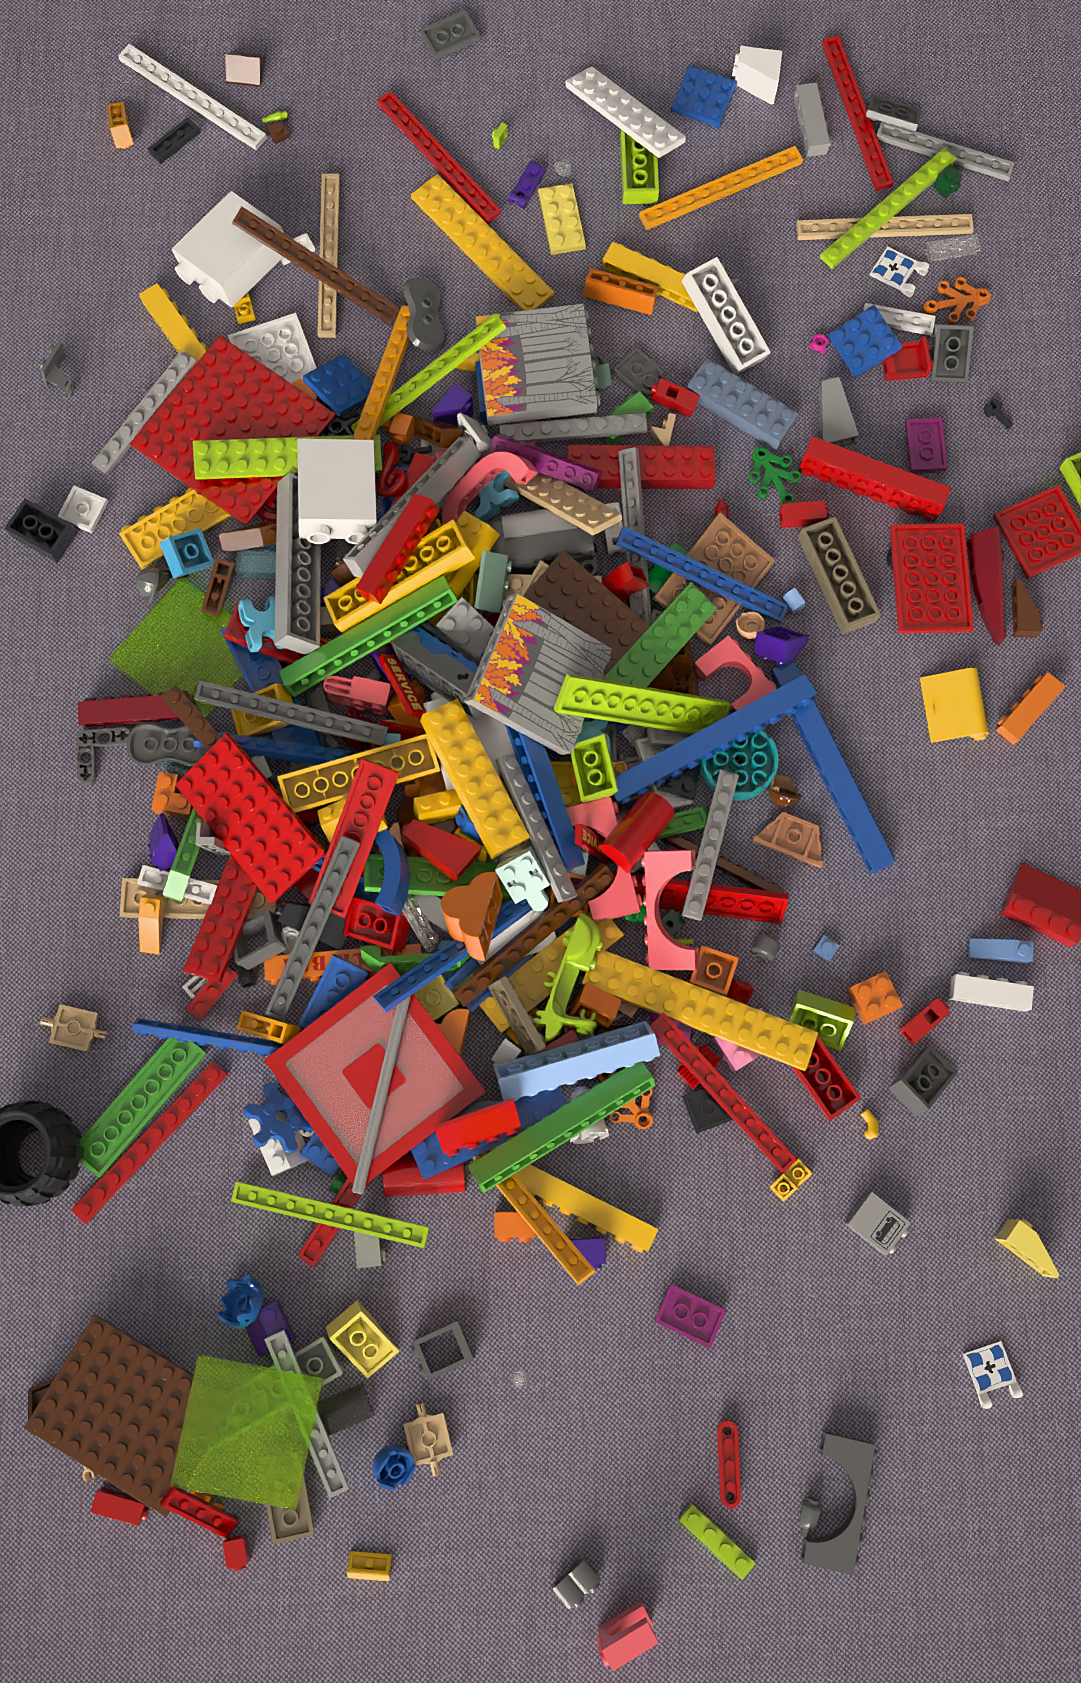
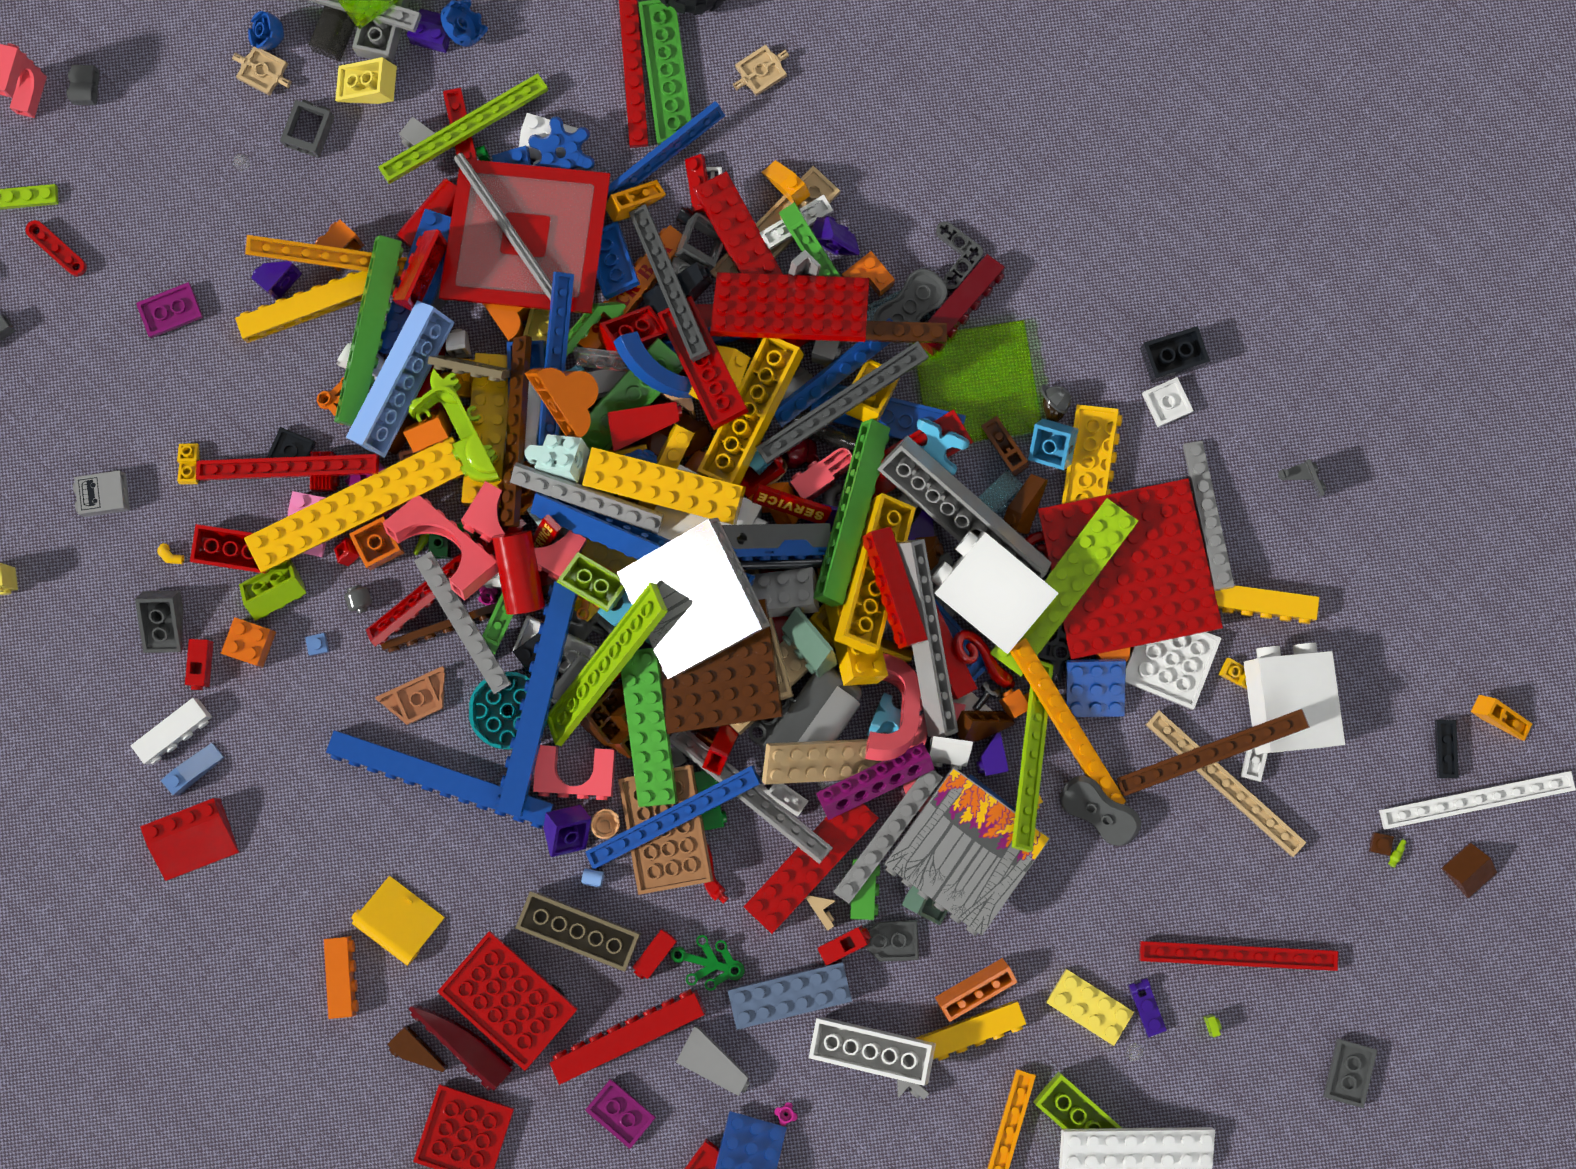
camera: 140 degrees right, 5 degrees up
(482, 244) = (1124, 918): yellow plate -> none
(783, 792) = (454, 723): piece -> none

